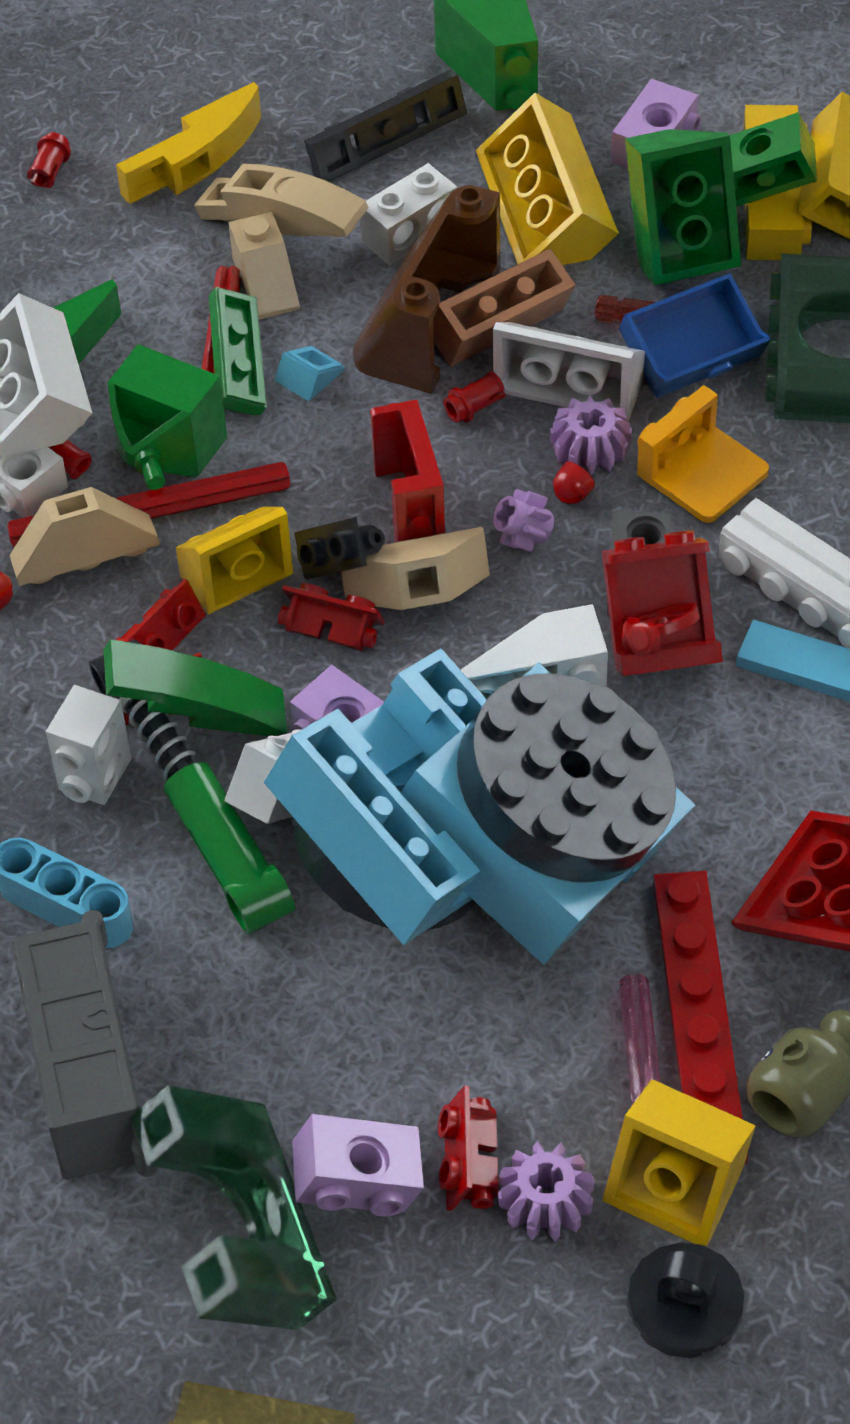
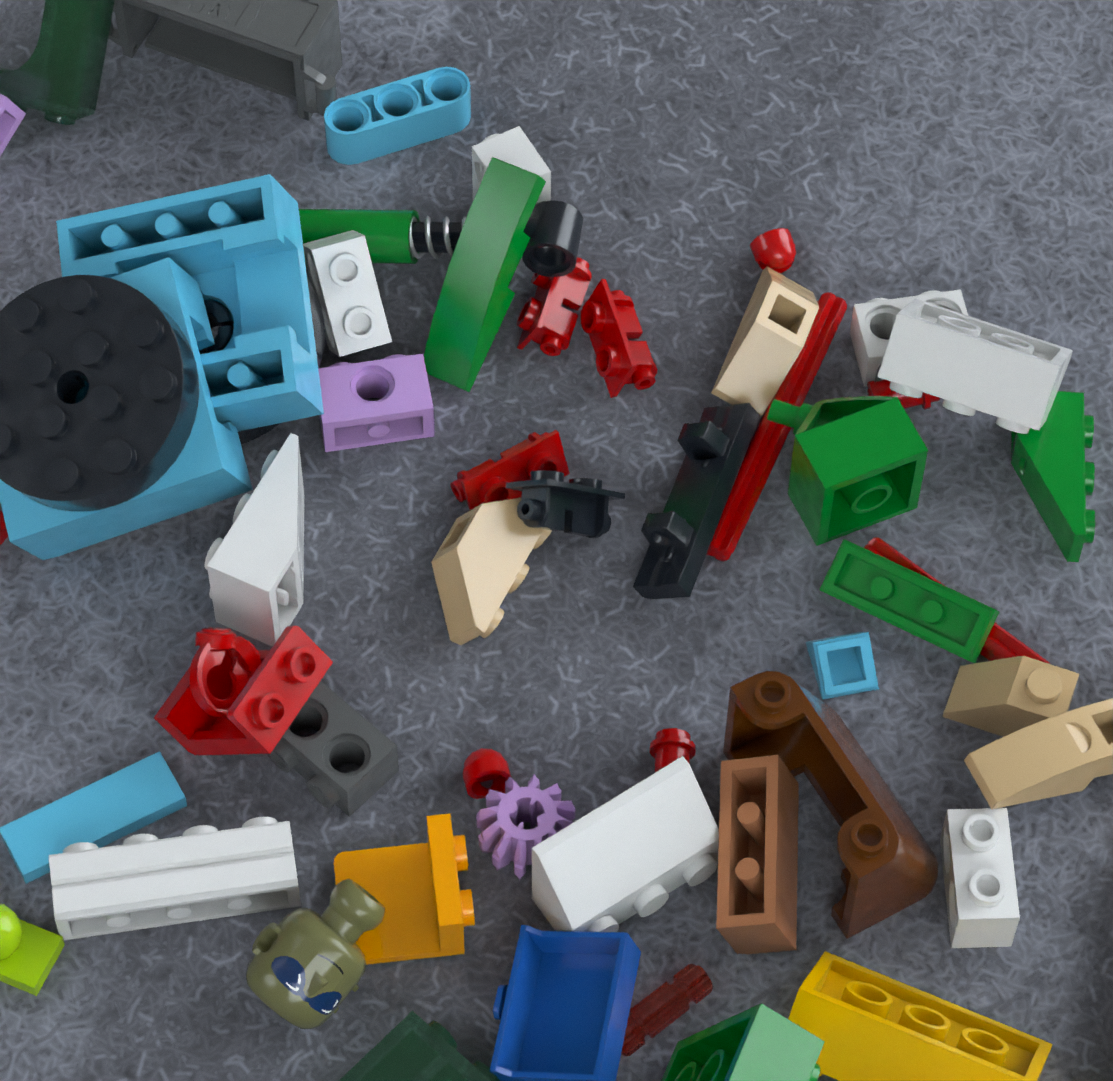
camera: 125 degrees right, 5 degrees up
(237, 557) = (639, 425): yellow slope -> none
(321, 485) = (696, 502): none -> black hinge
(404, 446) = (590, 617): red panel -> none
(523, 520) = (470, 686): lavender gear -> none
(793, 461) = (313, 959): none -> olive piece

